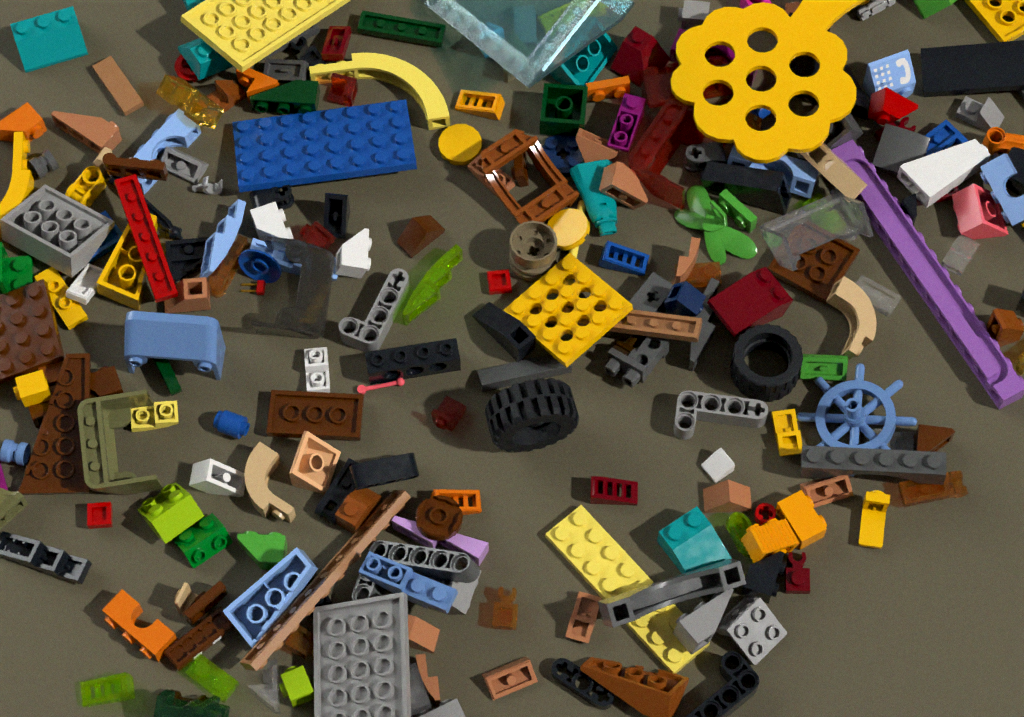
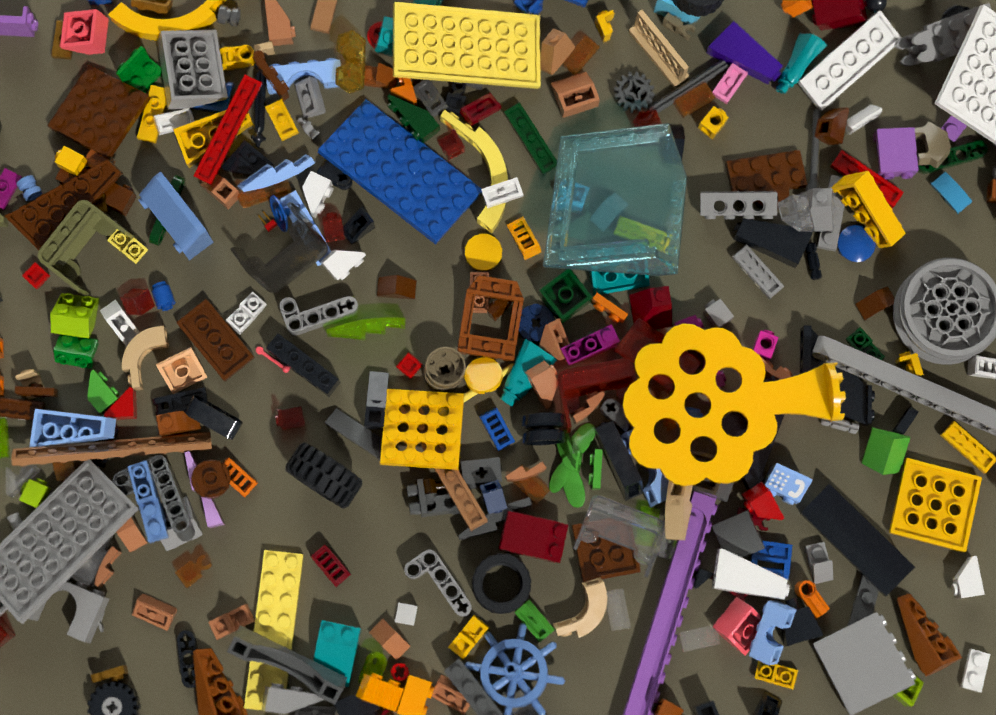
camera: 40 degrees right, 15 degrees up
(179, 200) = (281, 119): none -> yellow plate
(214, 446) = (137, 301): none -> clear red panel
(298, 536) = (124, 407): none -> red slope
(427, 79) = (502, 192): none -> white plate
(662, 217) = (542, 429): none -> black wheel
(676, 166) = (592, 402): none -> nougat slope

